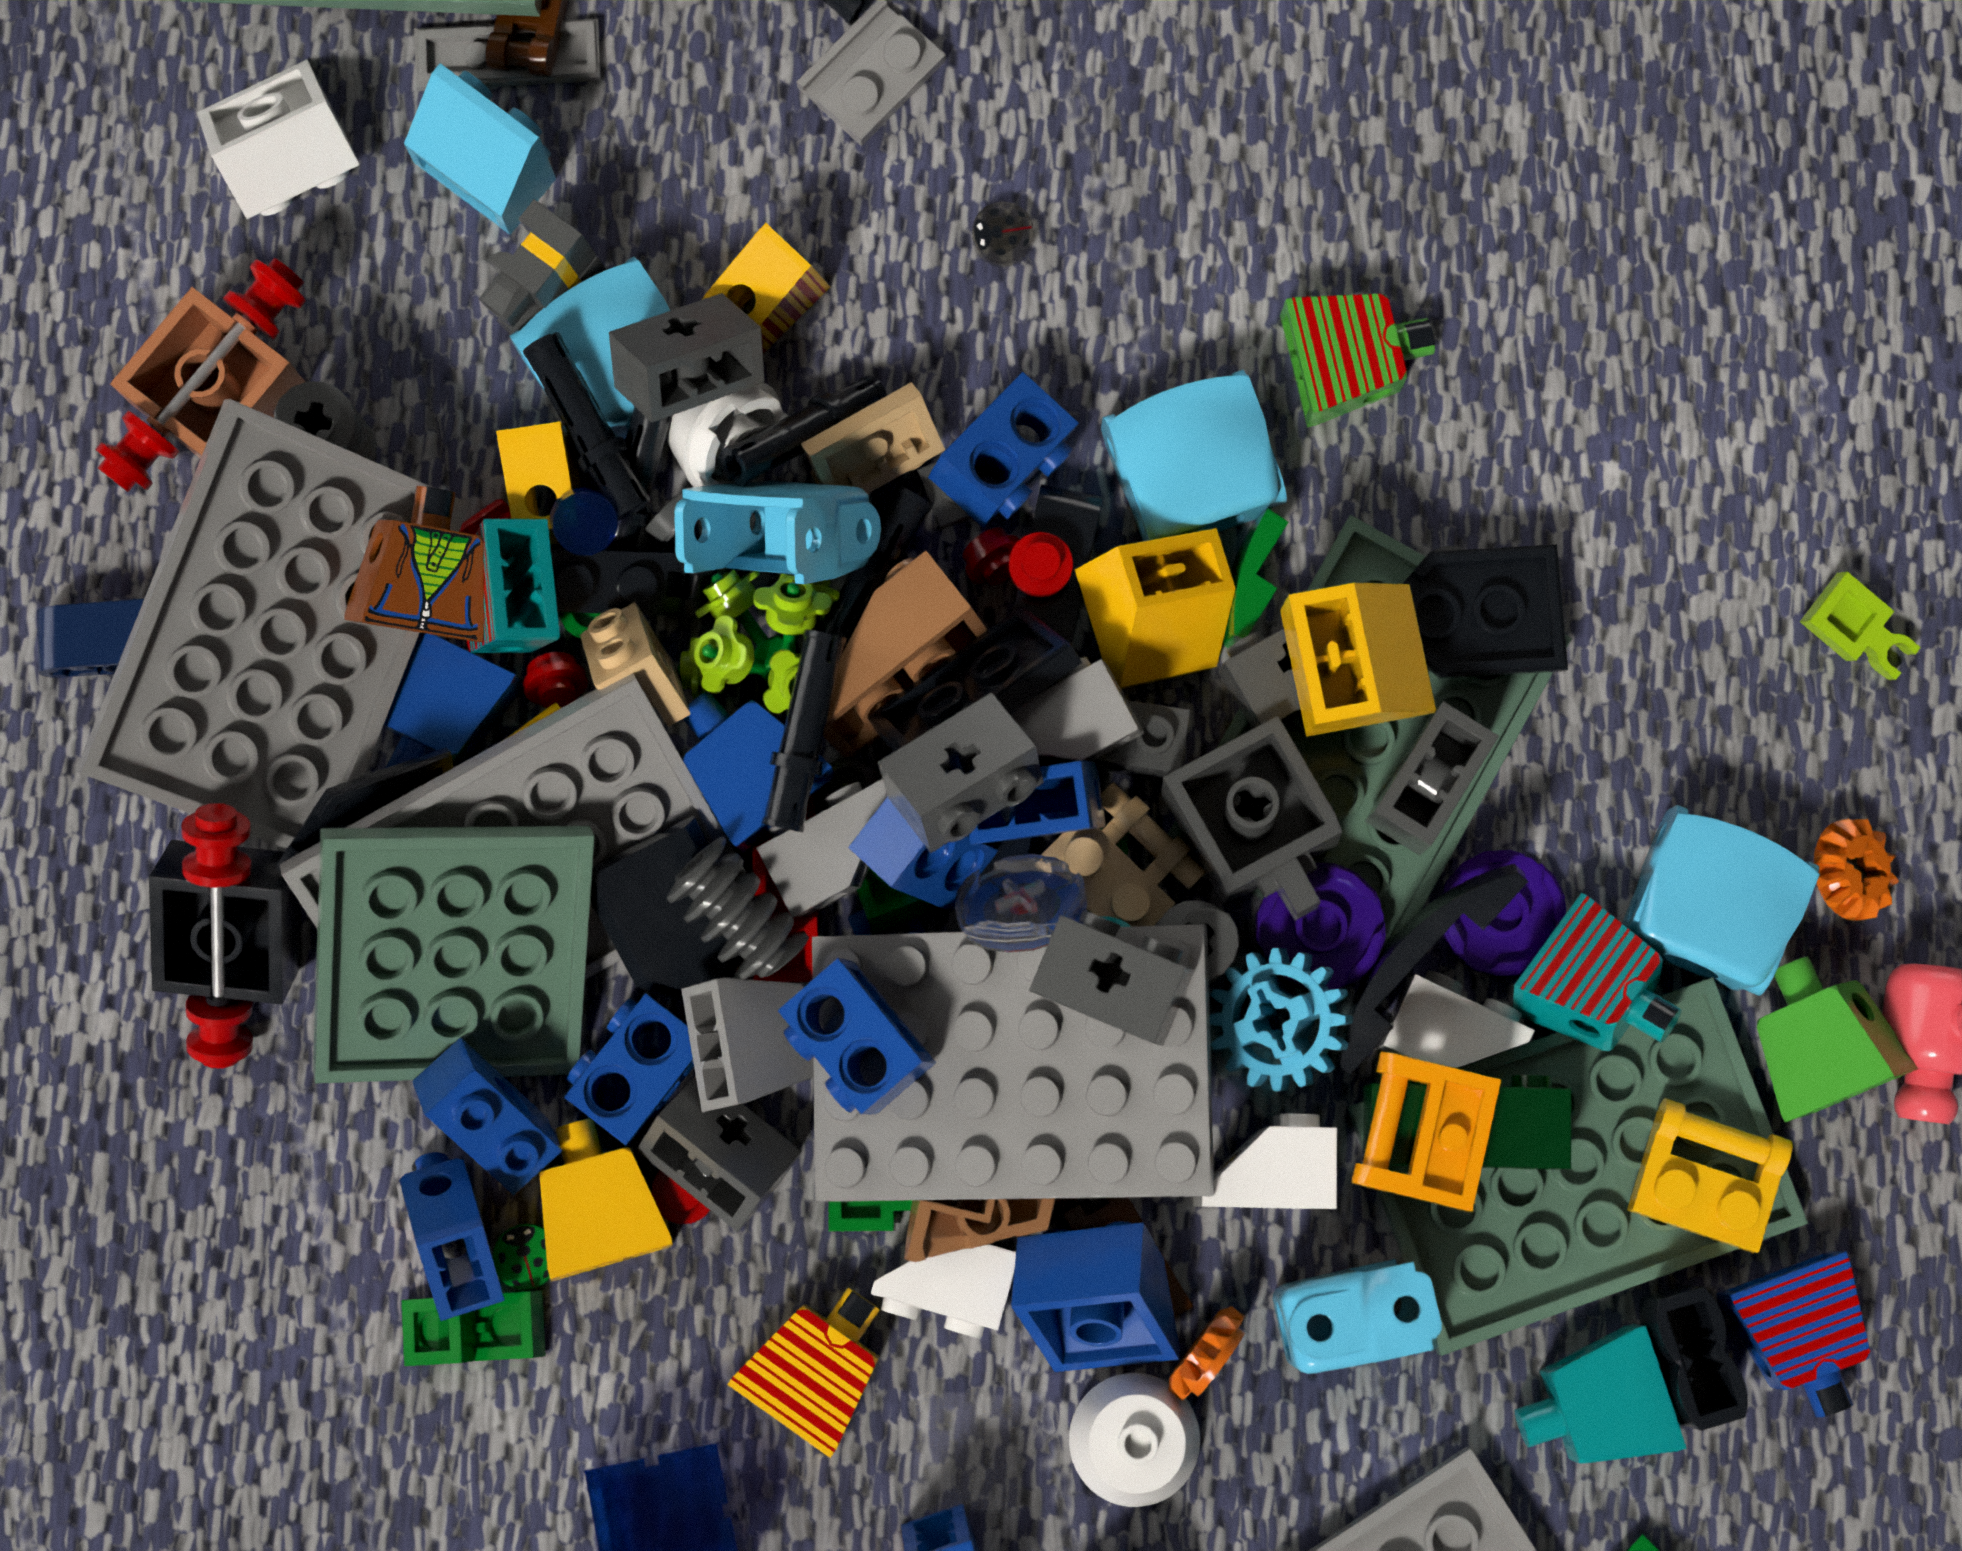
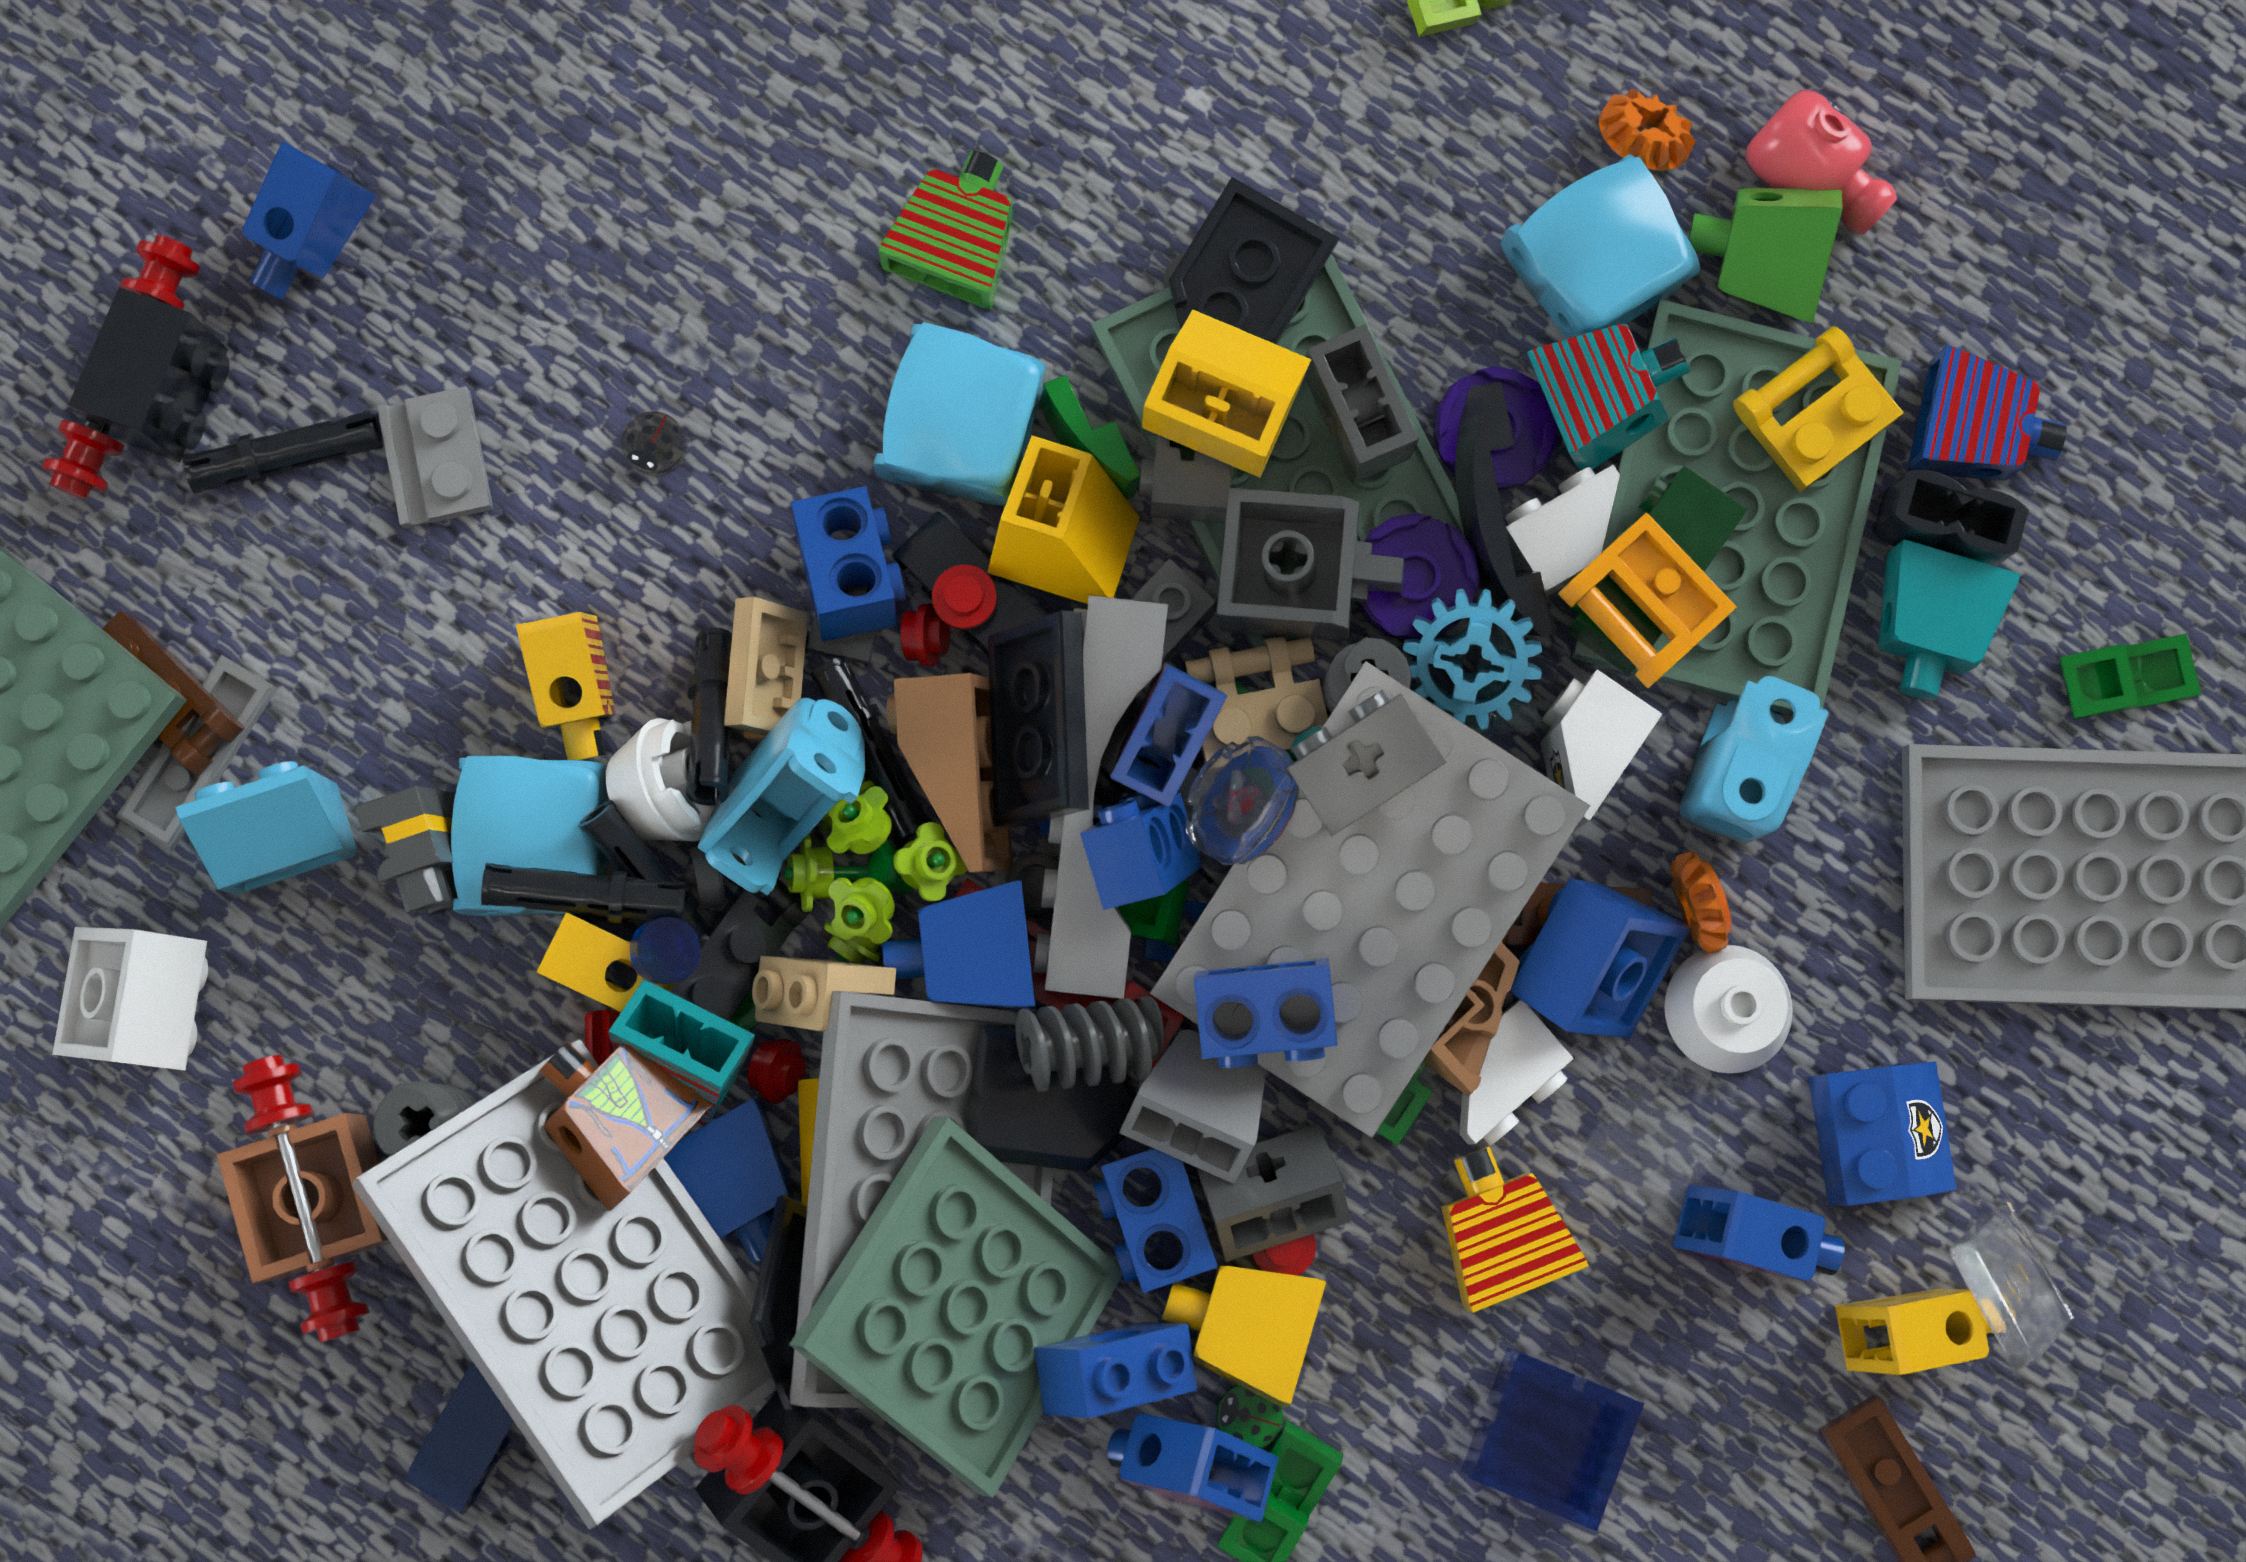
camera: 60 degrees left, 0 degrees up
(687, 357) = (587, 767): dark grey brick -> none
(803, 731) = (979, 882): black pin -> none
(961, 773) = (1113, 769): dark grey brick -> none

